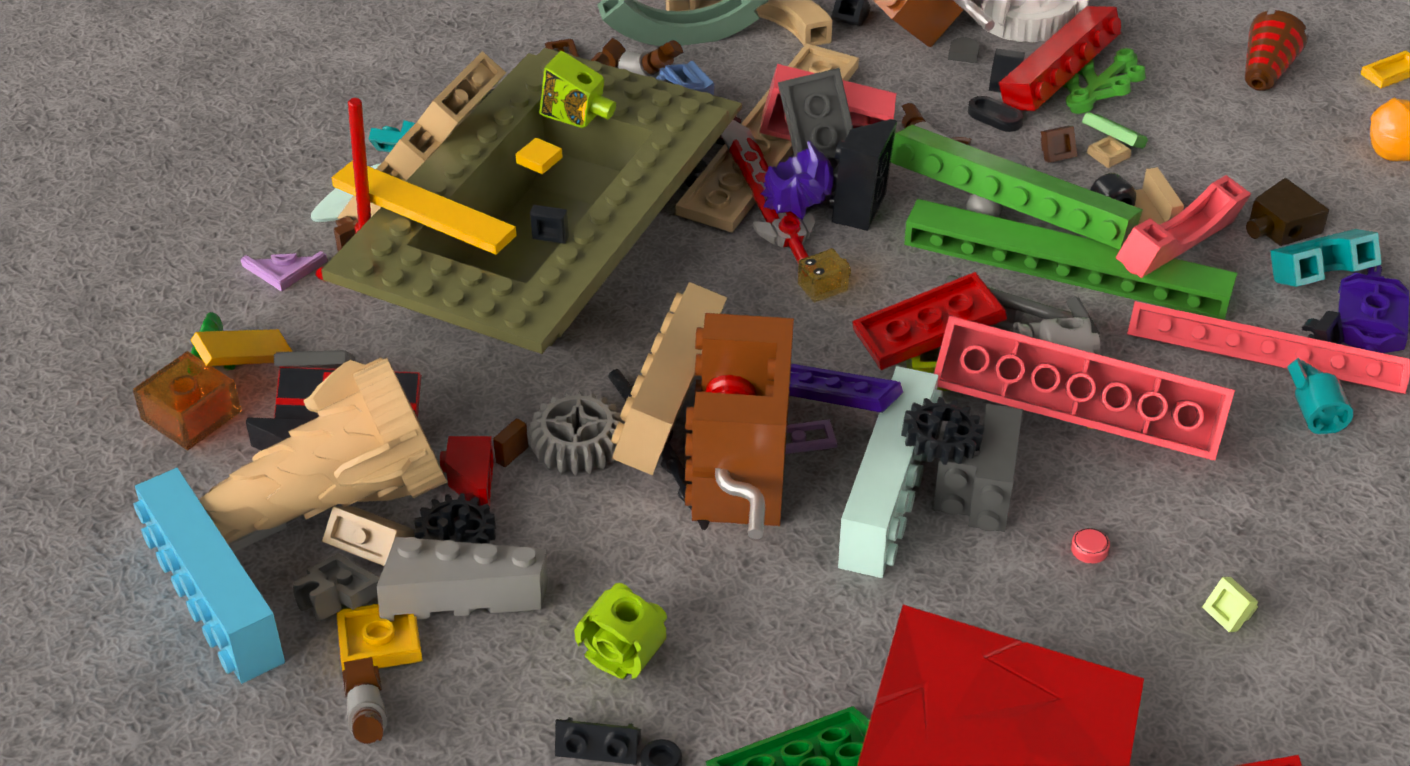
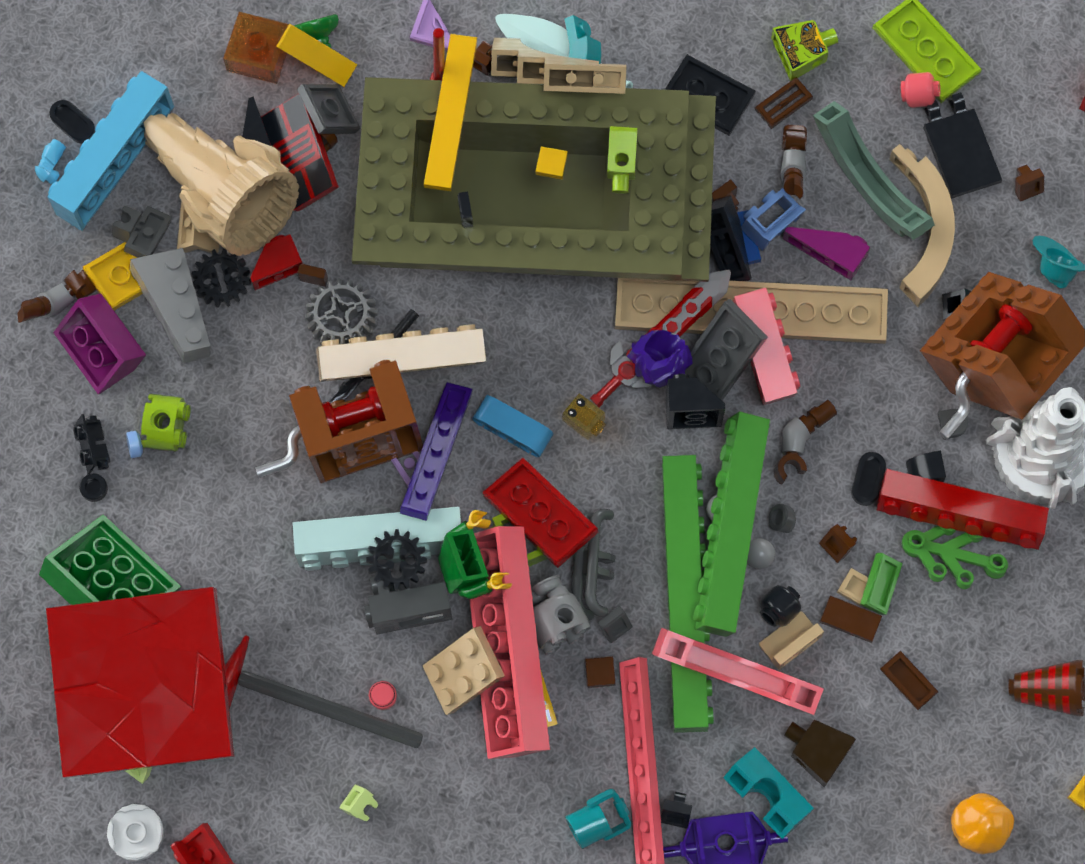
camera: 70 degrees right, 30 degrees up
(127, 622) = (72, 121): none -> black tile
(164, 657) = (50, 157): none -> medium azure arm
(460, 683) = (99, 342): none -> magenta slope
(516, 29) = (802, 46): none -> lime torso
(626, 688) = (134, 444): none -> light blue piece
(744, 64) = (834, 249): none -> magenta slope
(817, 327) = (514, 425): none -> dark azure beam
(977, 369) = (463, 563): none -> green torso
(1098, 440) = (463, 670): none -> tan plate
(1104, 586) = (330, 709): none -> dark grey axle
(1133, 350) = (600, 672): none -> reddish brown tile
(1147, 156) = (850, 619): none -> reddish brown tile
(1225, 144) = (909, 680): none -> reddish brown tile

